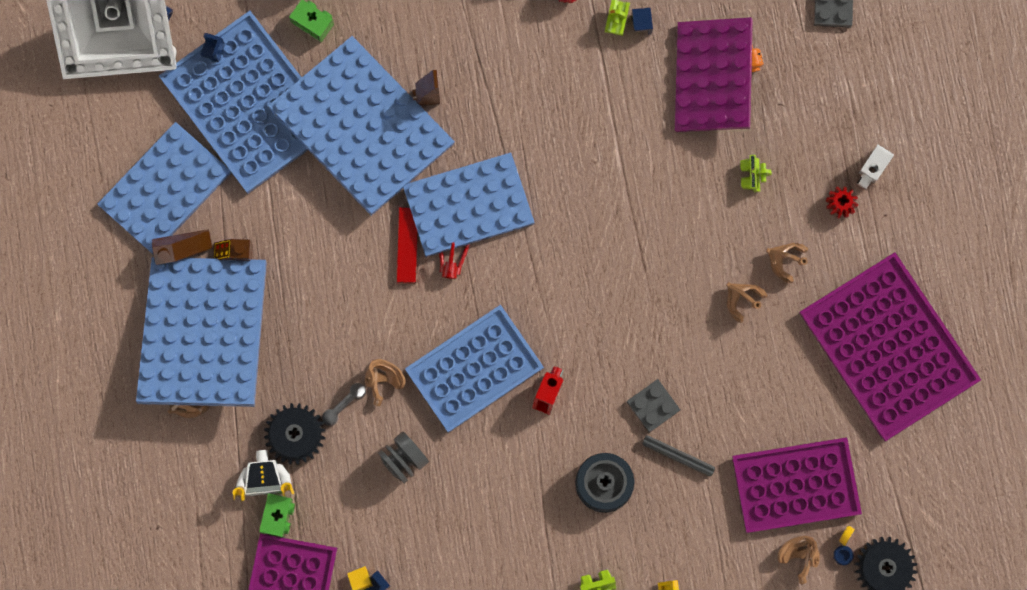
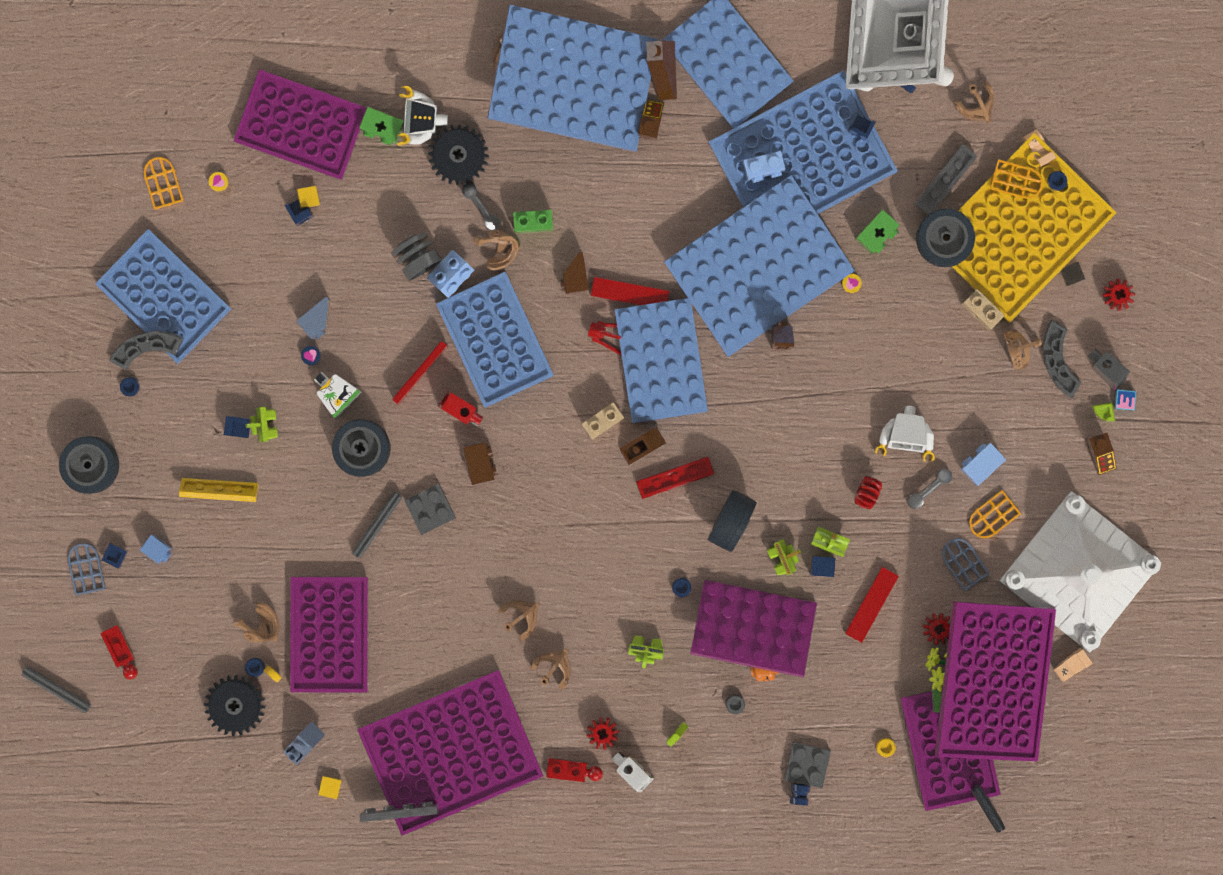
camera: 105 degrees right, 10 degrees up
(262, 131) = (763, 166): none -> light blue brick
(350, 349) = (533, 221): none -> bright green brick
(365, 37) = (851, 283): none -> yellow tile
(398, 299) = (575, 276): none -> reddish brown slope
(415, 421) = (450, 273): none -> light blue brick
(483, 550) = (316, 319): none -> sand blue slope
(519, 437) = (419, 373): none -> red tile
(519, 550) = (310, 355): none -> dark blue tile
(537, 250) = (603, 421): none -> tan brick
(554, 517) = (336, 393): none -> torso
(555, 208) = (642, 445): none -> reddish brown slope
(580, 174) = (675, 477): none -> red tile
(599, 363) = (479, 463): none -> reddish brown brick
(614, 108) = (732, 521): none -> black wheel
(647, 55) = (787, 556): none -> lime hips
(686, 151) = (681, 587): none -> dark blue tile
(789, 83) = (735, 704): none -> dark grey tile
(822, 128) = (677, 734): none -> lime tile
(863, 9) = (802, 790): none -> dark blue wheel
(883, 226) = (572, 770): none -> red plate
(909, 491) = (304, 743): none -> sand blue slope
(947, 460) = (330, 787): none -> yellow tile
(962, 391) = (407, 810): none -> flat silver plate

